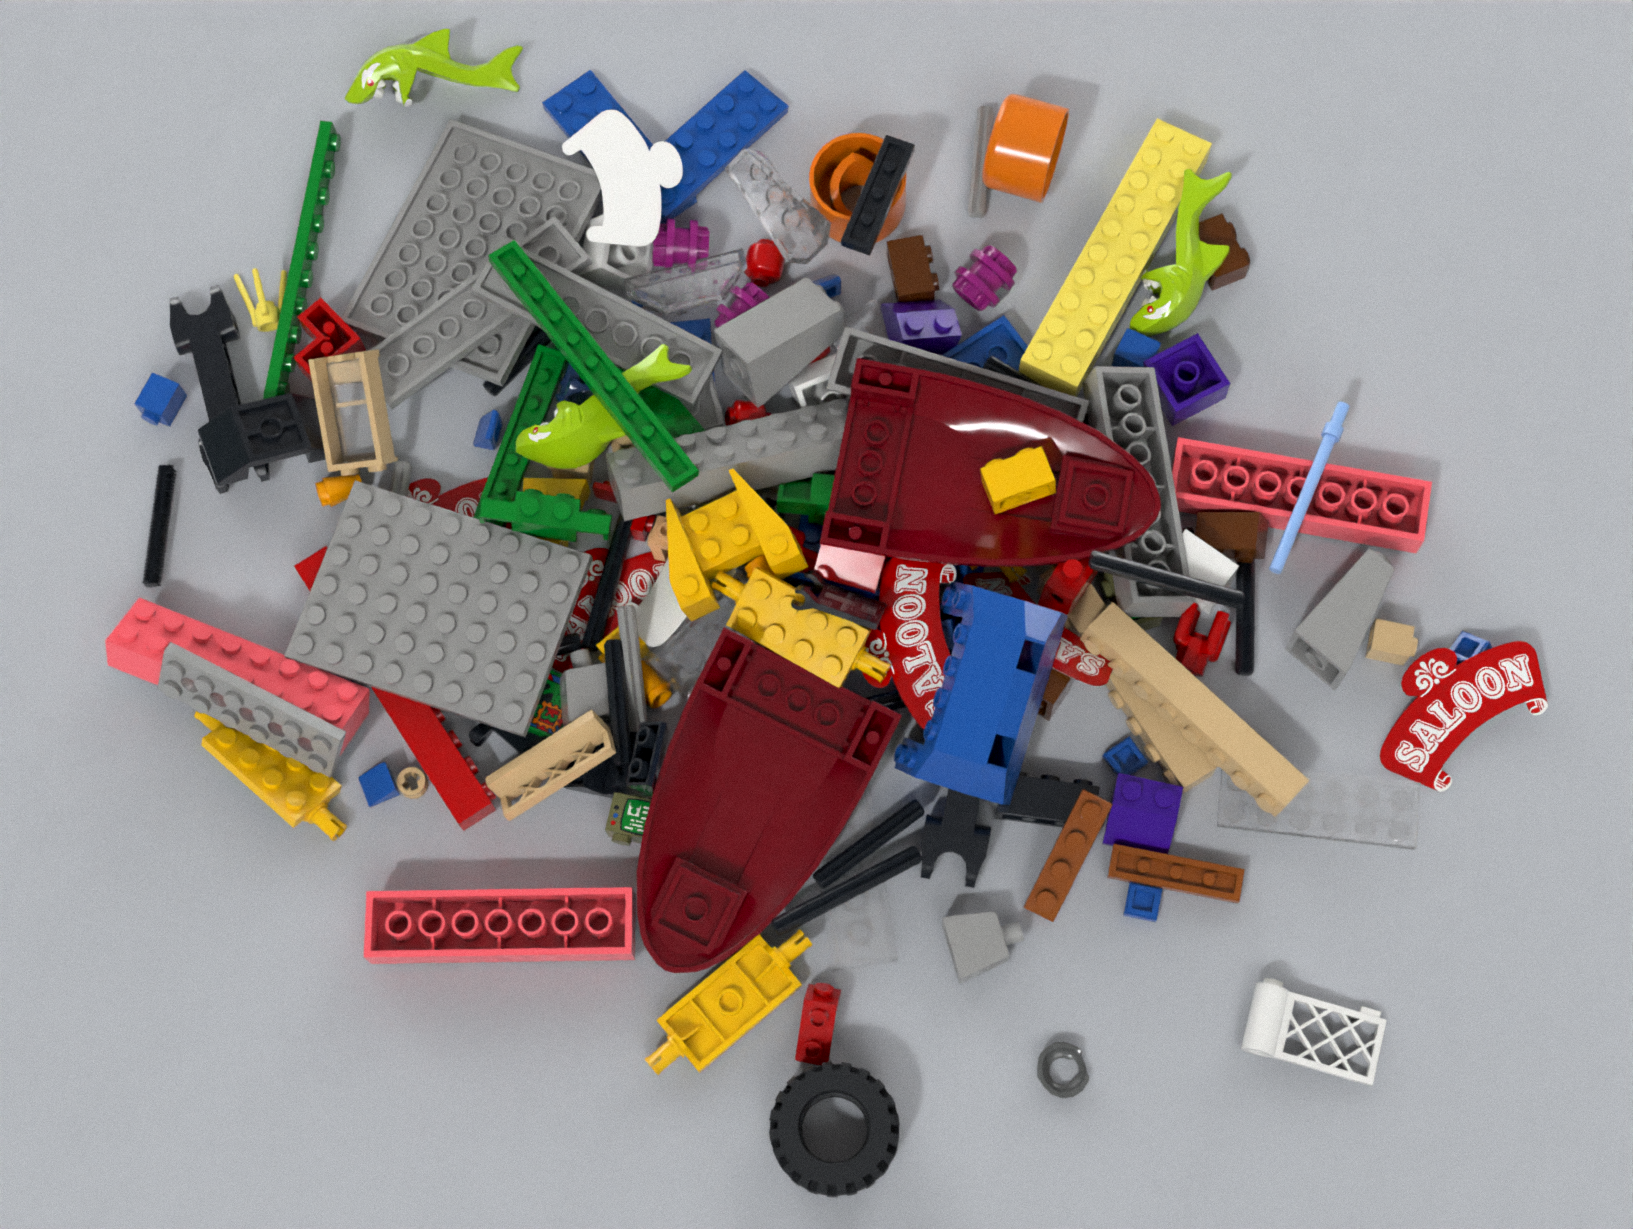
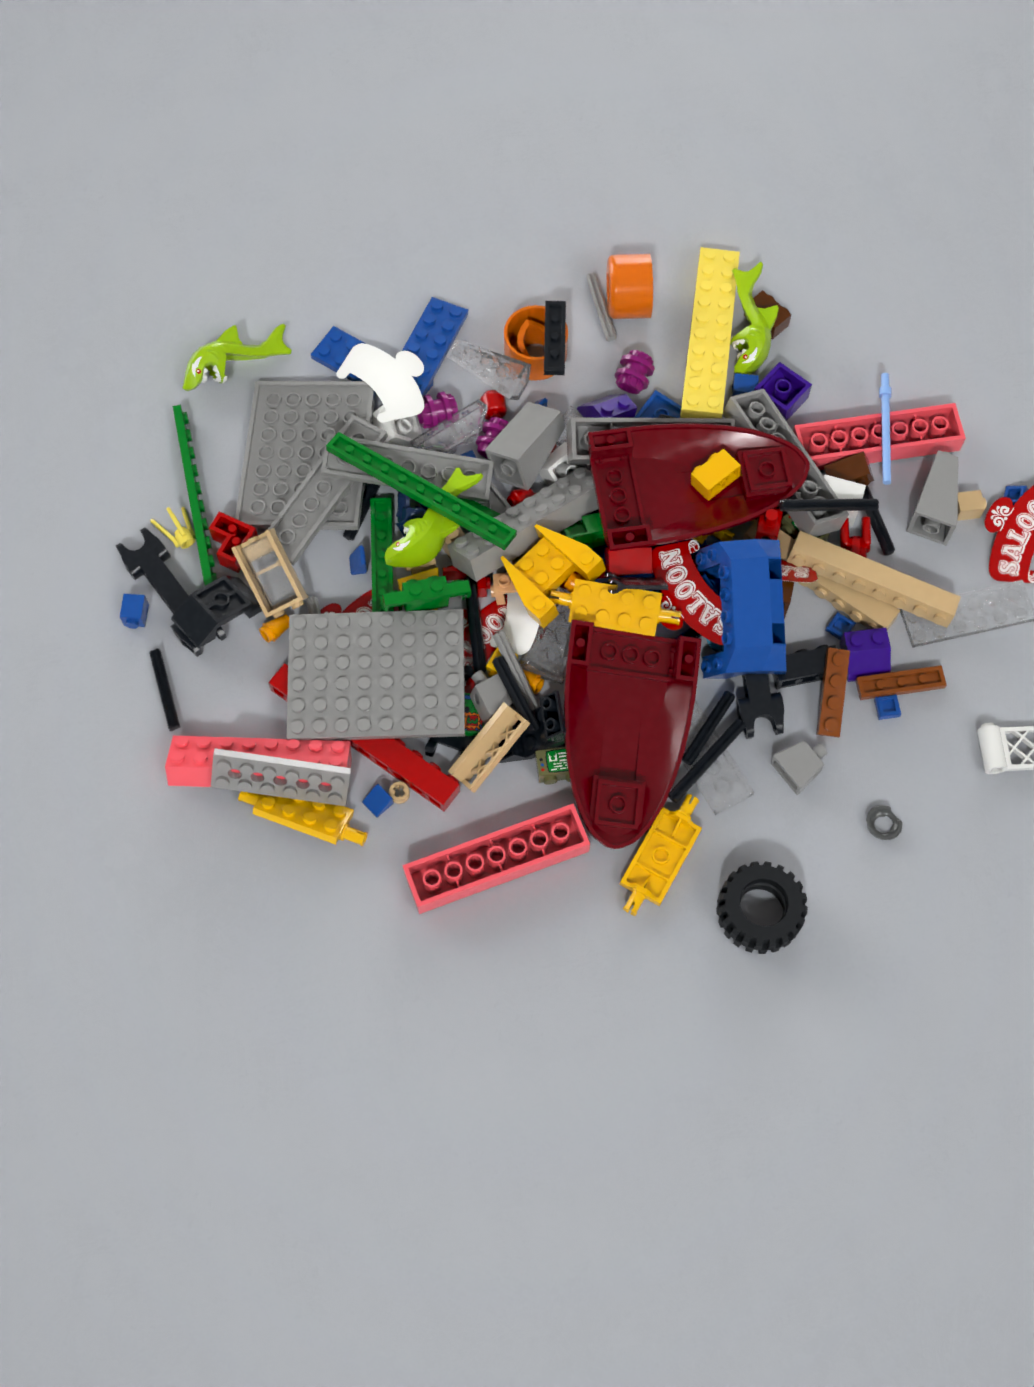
camera: 25 degrees left, 5 degrees down
(817, 1023) = (722, 848): red bracket -> none
(911, 270) = (586, 382): reddish brown brick -> none

